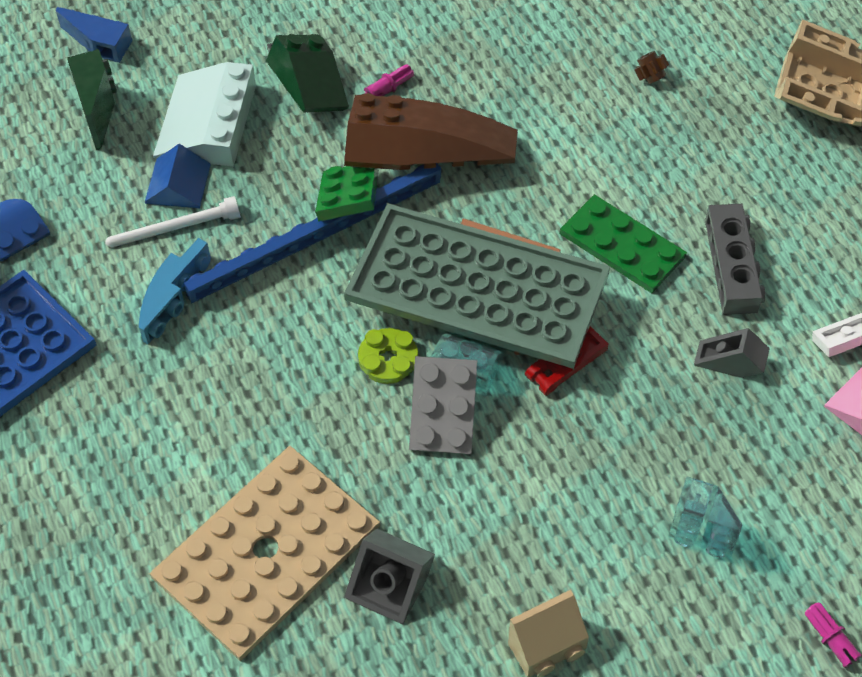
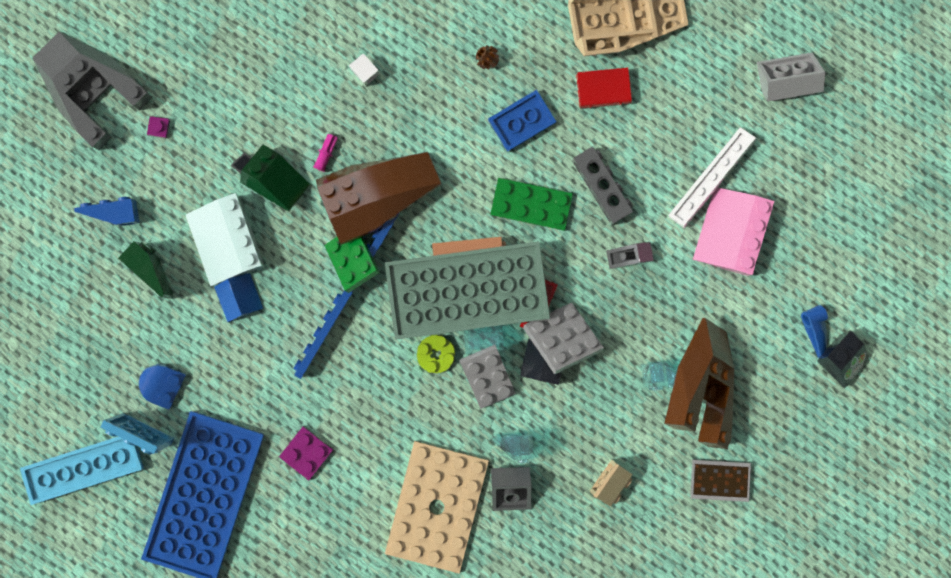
camera: 30 degrees left, 30 degrees up
(133, 392) = (305, 453): none -> magenta plate
(164, 292) = (284, 386): dark azure slope -> none
(227, 209) = (282, 304): white piece -> none
(432, 507) = (516, 445): none -> clear light blue slope
(490, 21) = (364, 69): none -> white panel
(537, 430) = (536, 367): none -> black slope
(580, 401) = (563, 338): none -> light grey plate
(660, 149) = (521, 120): none -> blue plate
(782, 540) = (705, 377): none -> reddish brown wedge
(789, 158) = (603, 88): none -> red piece
(832, 634) = (751, 402): dark pink axle -> none

